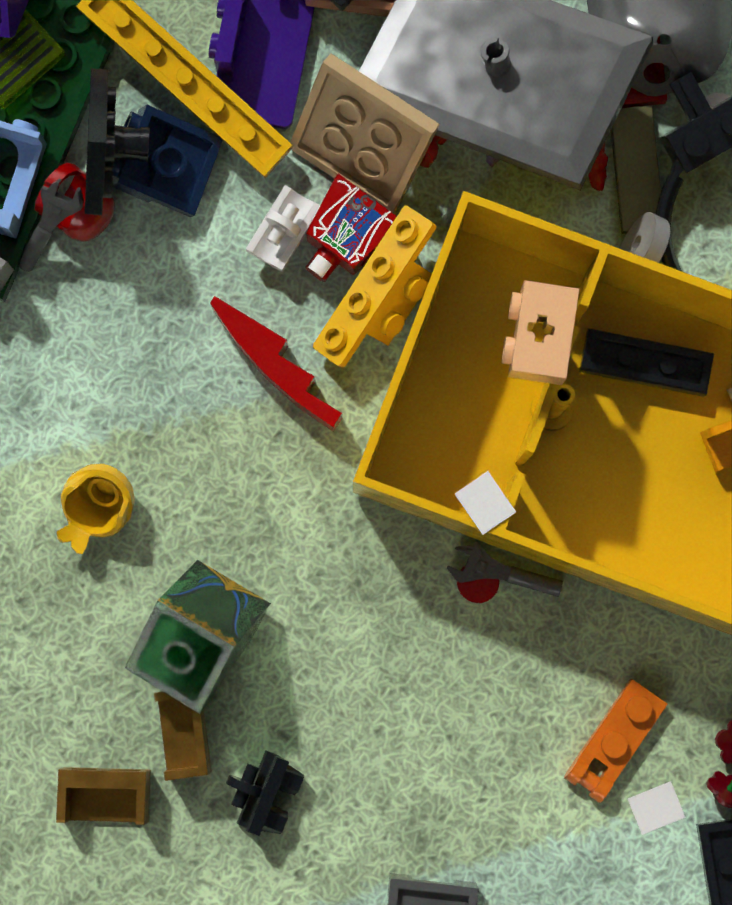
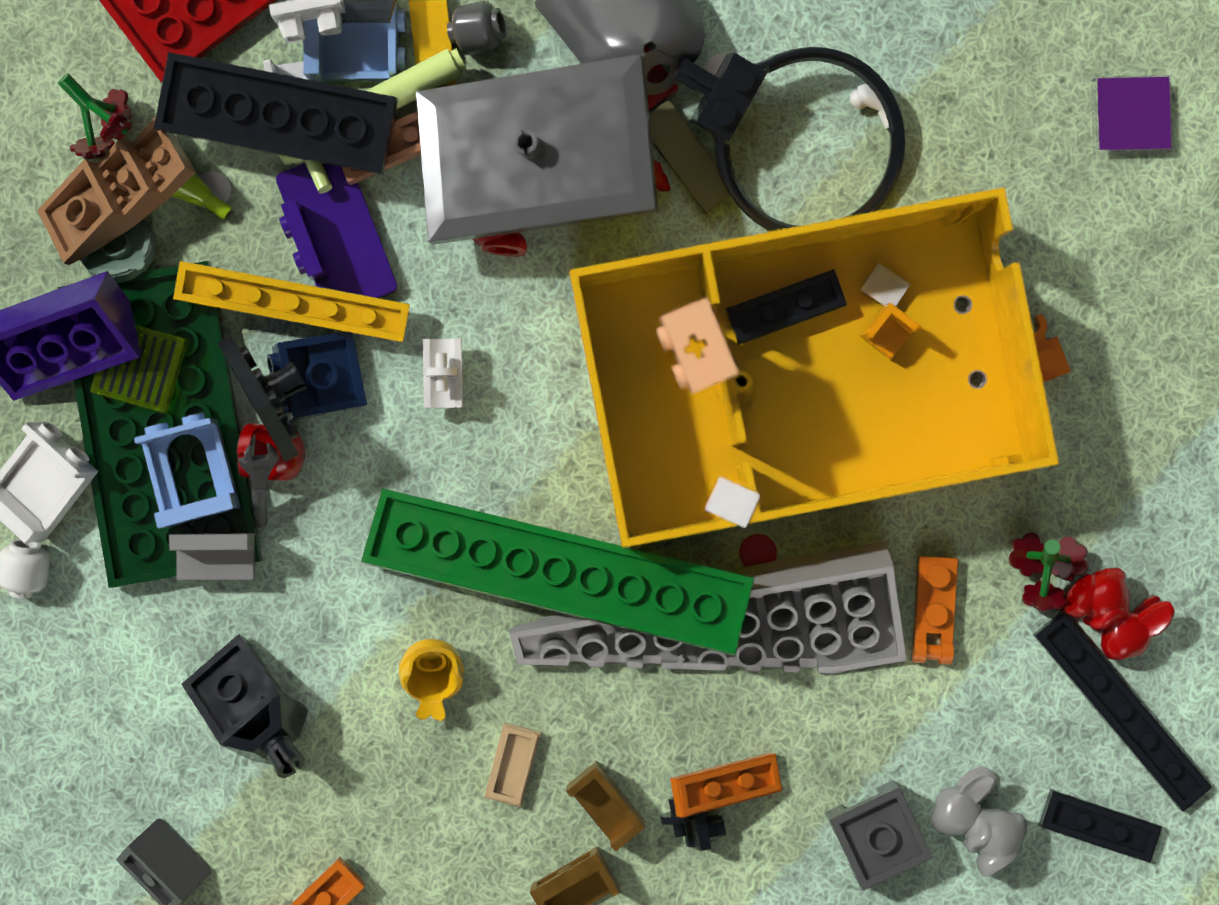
camera: 25 degrees left, 5 degrees up
(114, 641) = (512, 764): none -> tan tile
(196, 635) = (571, 728): clear green slope -> none
(265, 352) = (488, 478): red slope -> none
(279, 479) = (559, 571): none -> green plate
(311, 783) = (725, 784): none -> orange tile
(346, 229) = (493, 343): torso -> none
(362, 133) = (459, 264): tan plate -> none
(381, 292) = (549, 377): yellow bracket -> none
(467, 654) = (803, 612): none -> light grey wedge
(483, 566) = (756, 538): dark grey piece -> none
(648, 237) = (729, 214): light grey piece -> none
(656, 808) = (995, 641): white sticker -> none

